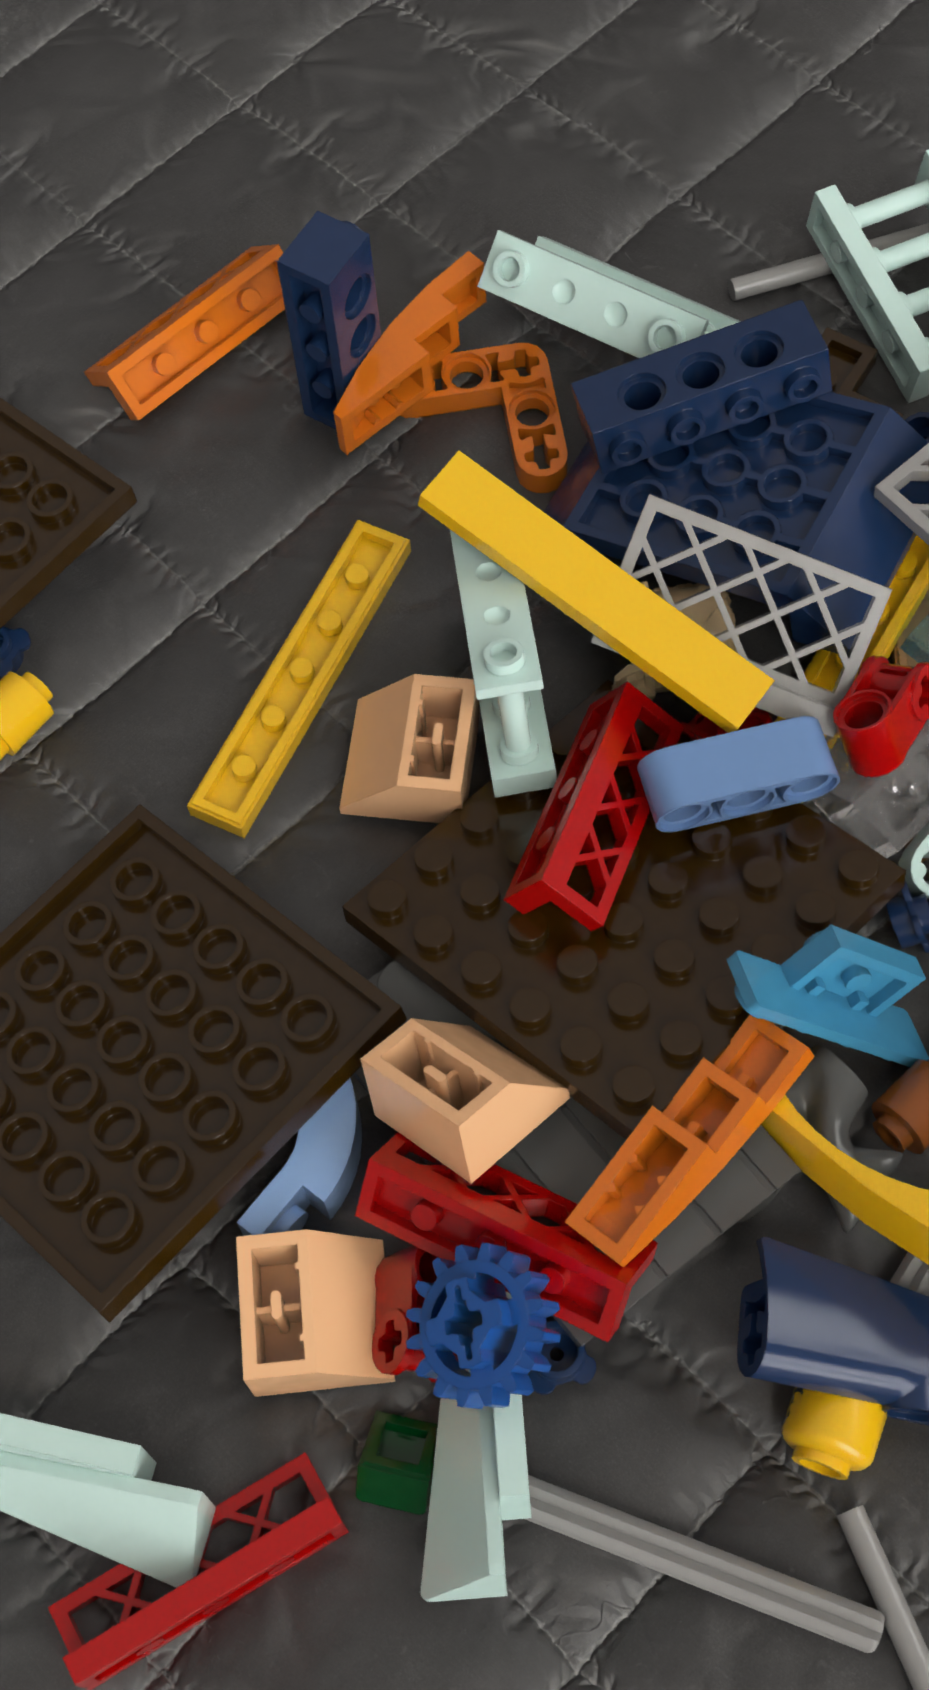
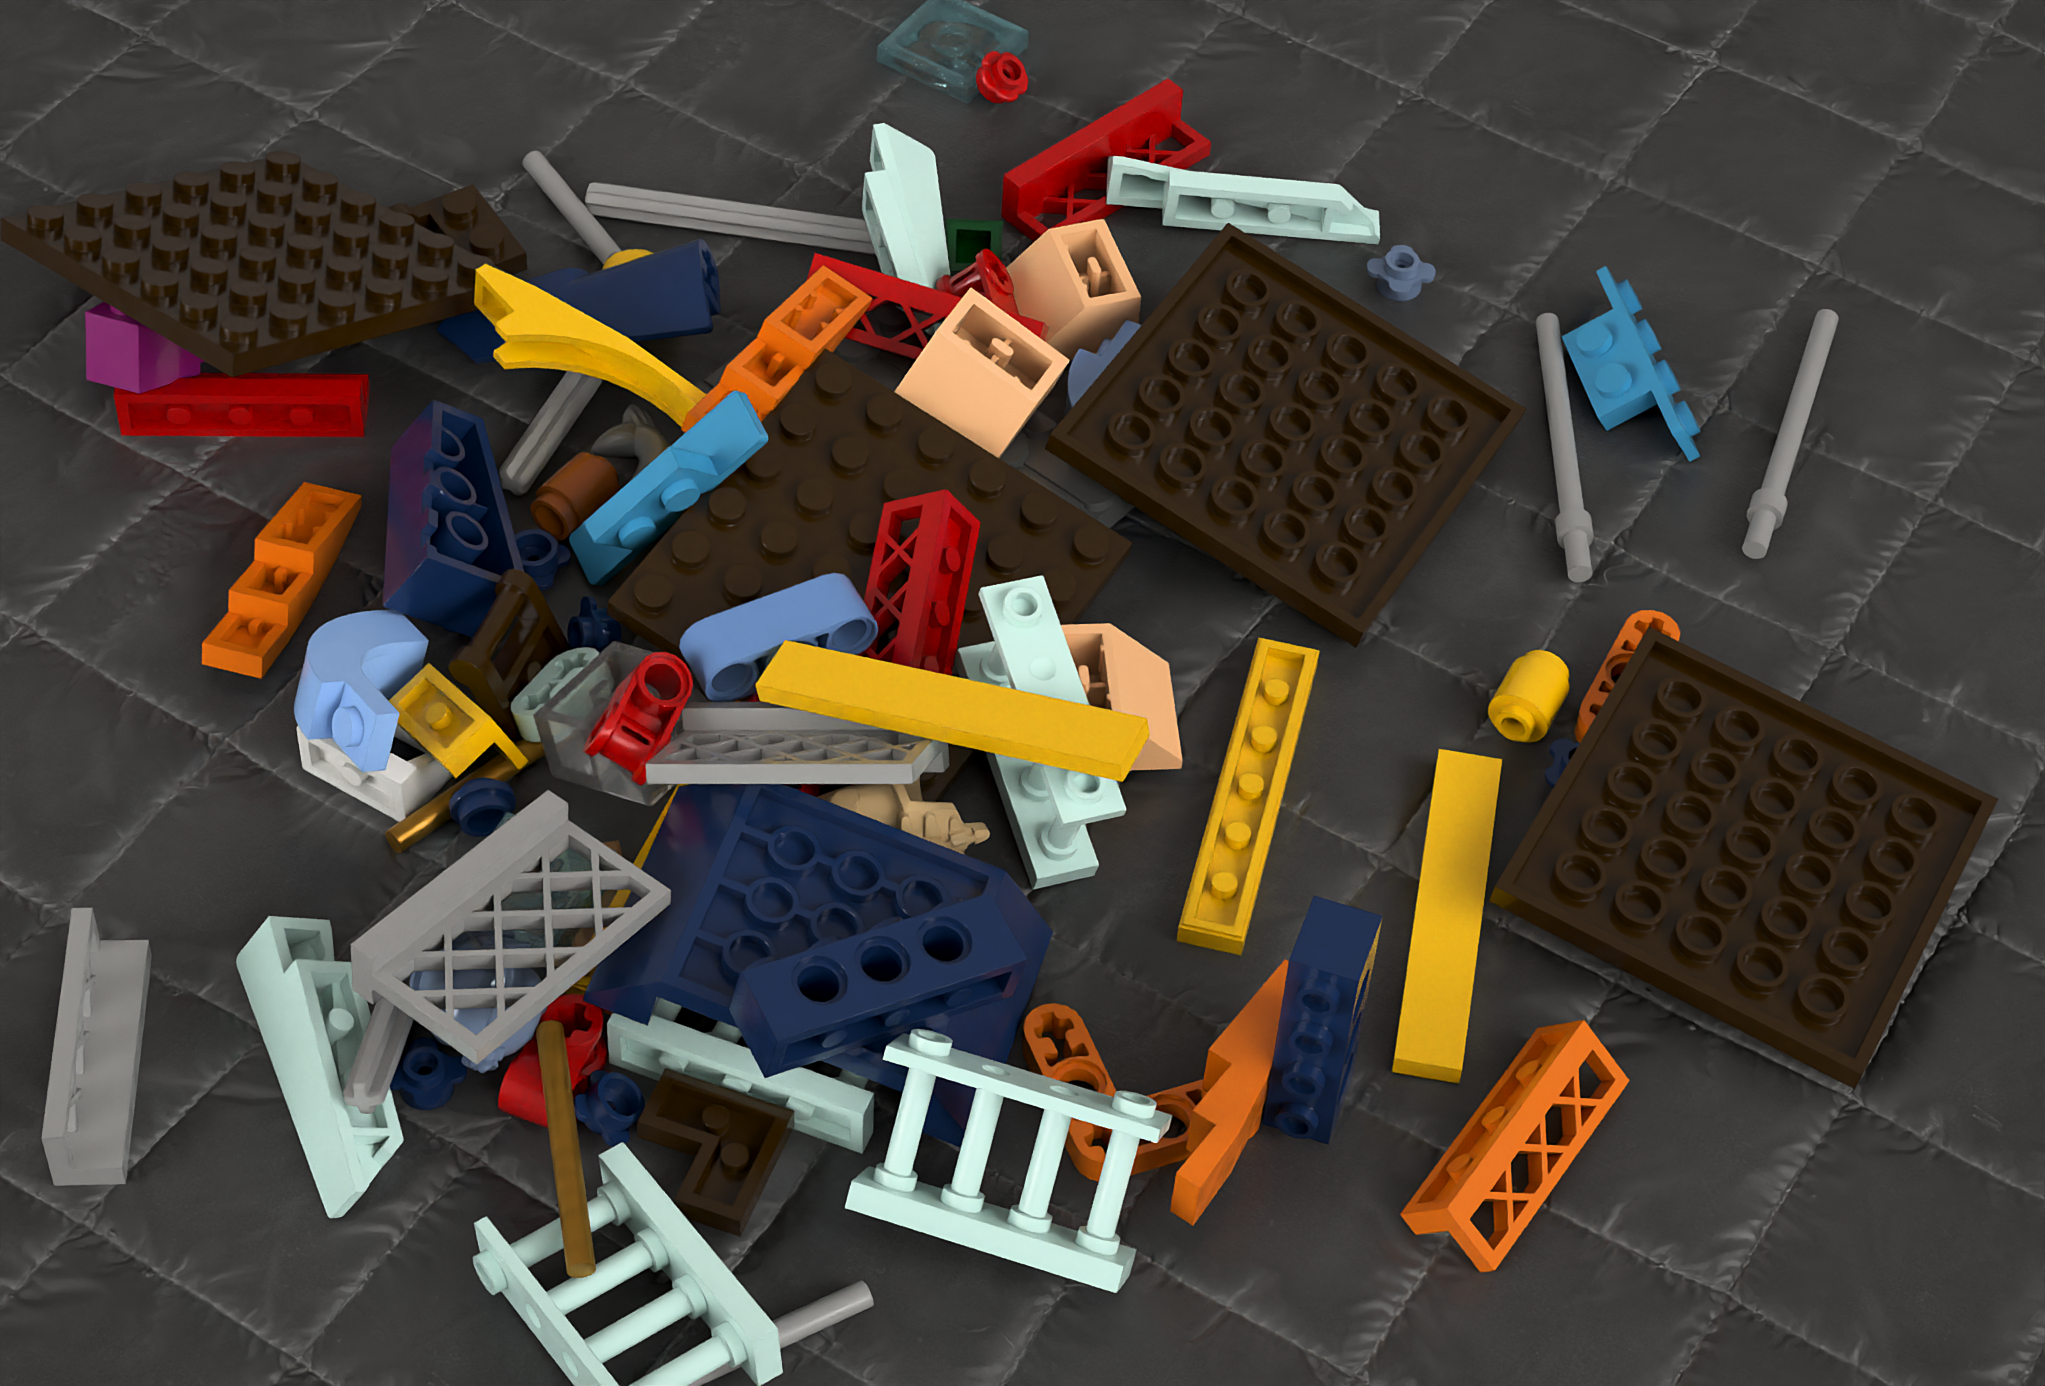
camera: 160 degrees right, 15 degrees down
(166, 538) = (1447, 917): none -> yellow tile
(485, 1329) = (923, 241): blue gear -> none

